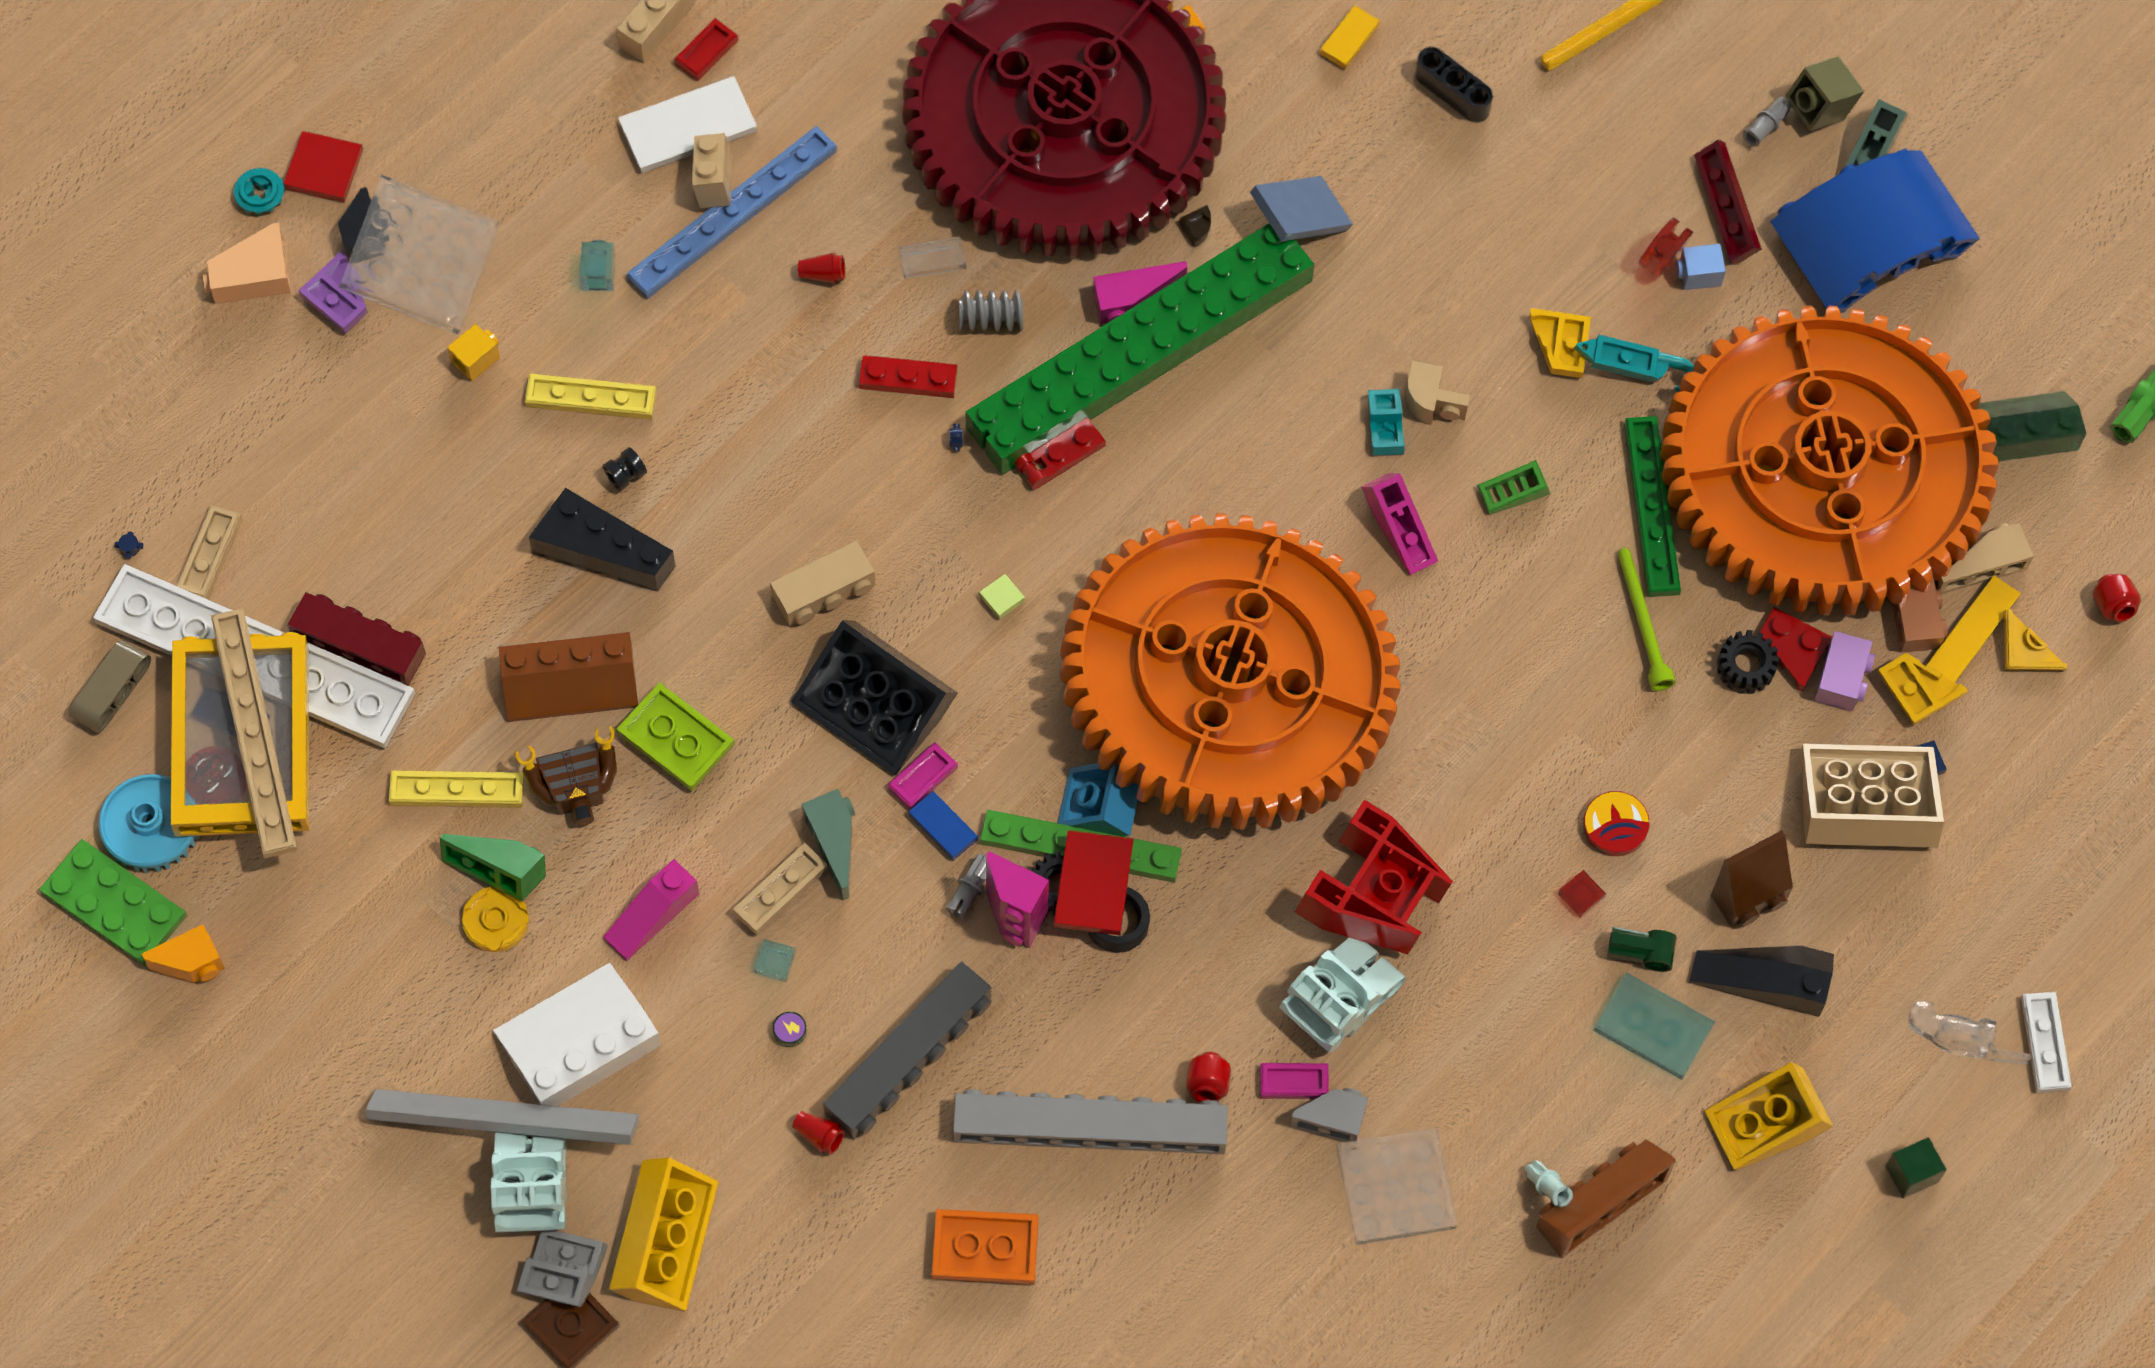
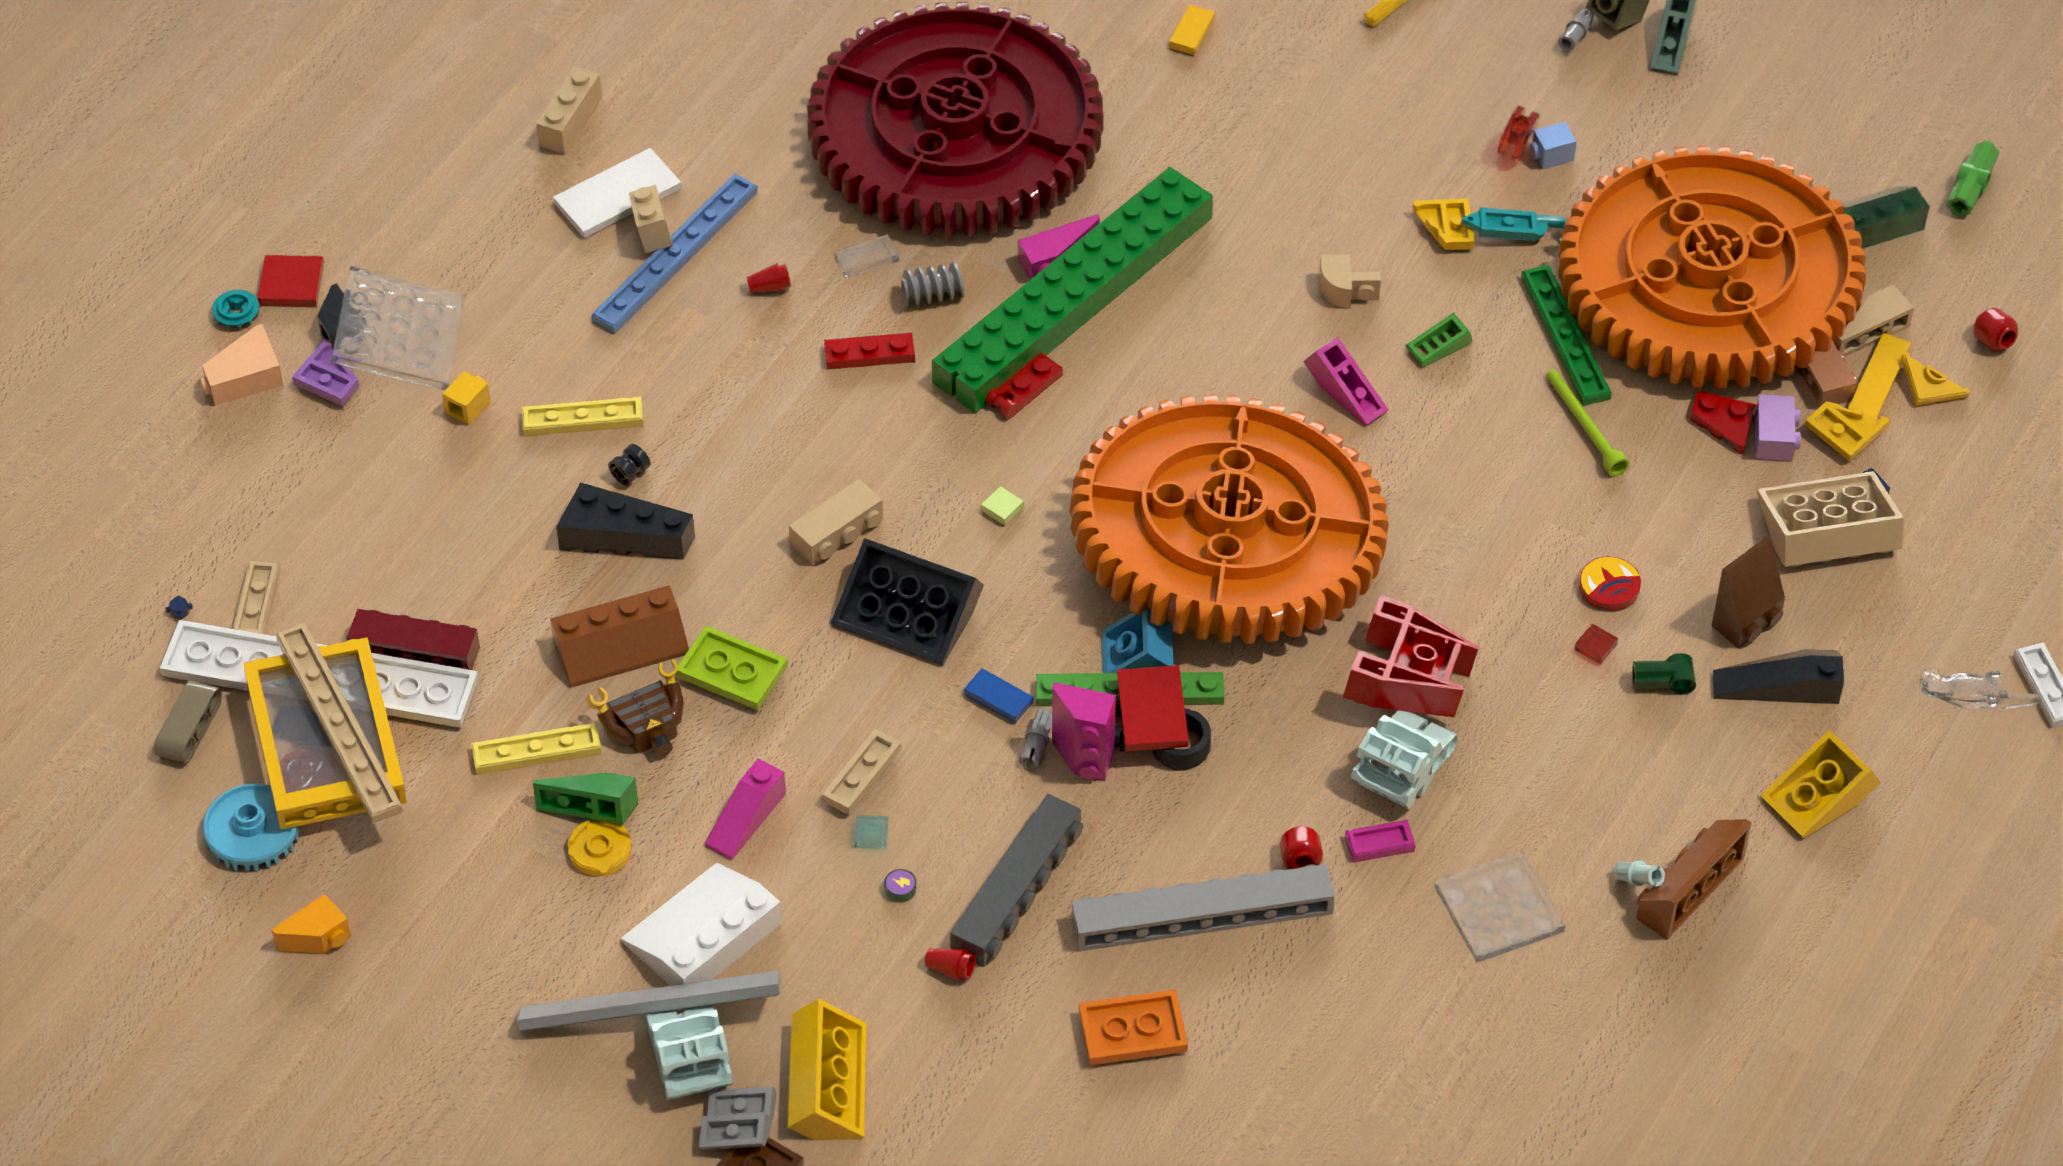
camera: 10 degrees left, 15 degrees down
(112, 901) = (229, 899): bright green plate -> none
(597, 266) = (563, 312): clear light blue brick -> none
(706, 49) = (619, 134): red tile -> none
(831, 827) = (895, 713): sand green slope -> none
(922, 776) = (968, 659): dark pink tile -> none
(956, 437) = (926, 389): dark blue piece -> none
(1197, 225) = (1097, 192): dark brown tile -> none
(1301, 208) = (1188, 157): sand blue tile -> none
(1333, 1115) = (1423, 859): light grey slope -> none
(1386, 422) = (1309, 311): teal slope -> none
(1457, 97) = (1294, 47): black beam -> none
(1654, 1026) = (1693, 736): clear light blue tile -> none
(1727, 202) = (1561, 93): dark red plate -> none
(1753, 645) = (1692, 424): black tyre -> none
(1872, 225) = (1691, 85): blue panel -> none
(1915, 1167) = (1965, 800): dark green piece -> none

